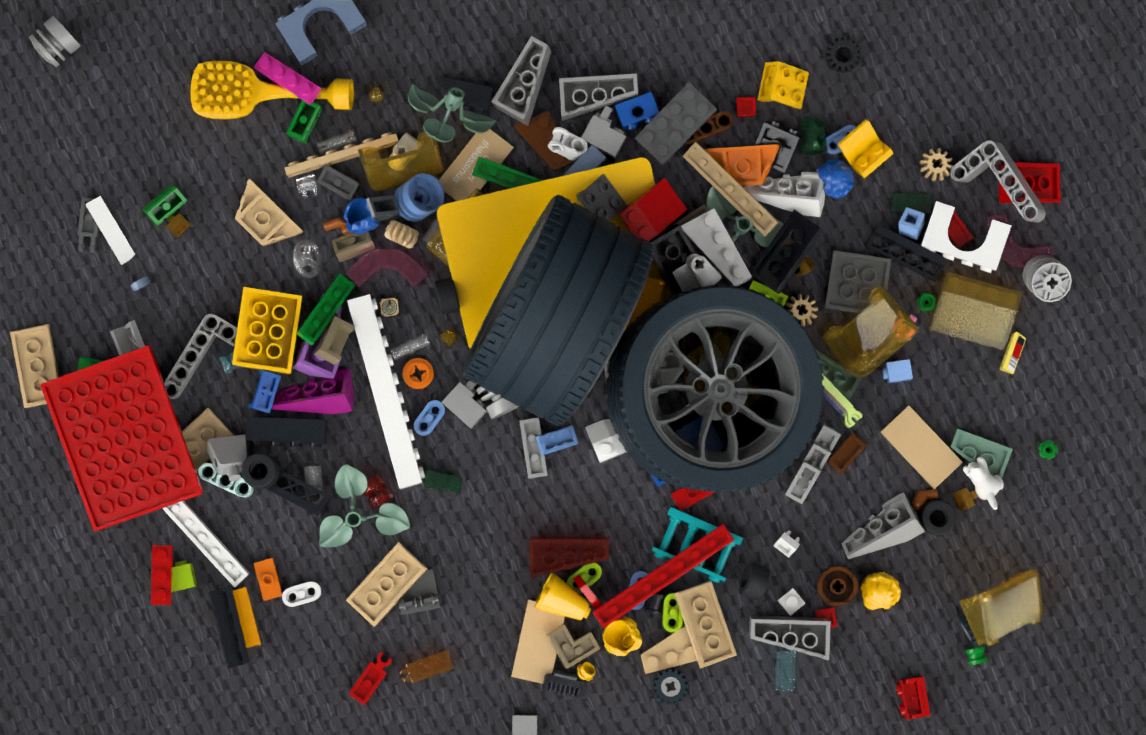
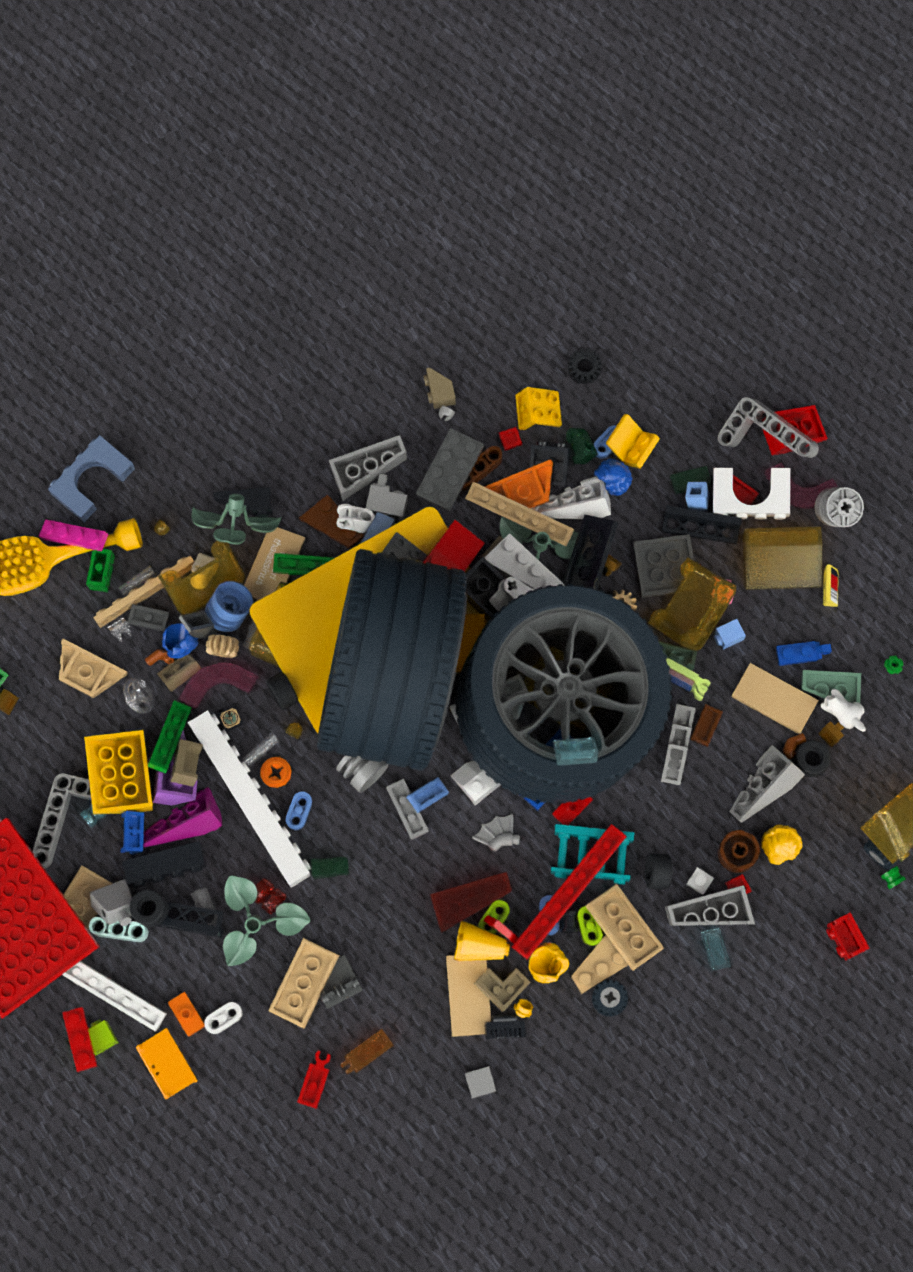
camera: 15 degrees left, 10 degrees down
(229, 627) = (161, 1071): black fence -> none
(463, 405) = (327, 787): light grey hinge -> none
(522, 84) = (296, 475): light grey wedge -> none
(613, 497) = (498, 833): none -> light grey arm
(645, 103) = (399, 472): blue brick -> none
(689, 59) = (445, 411): none -> light grey hinge
(692, 35) = (440, 389): none -> dark tan slope
(706, 456) = (575, 751): none -> clear light blue slope
(786, 544) = (678, 827): white tile -> none
(928, 165) = (705, 444): tan gear -> none
(931, 302) = (734, 559): green plate -> none
(962, 410) = (801, 652): none -> blue hinge

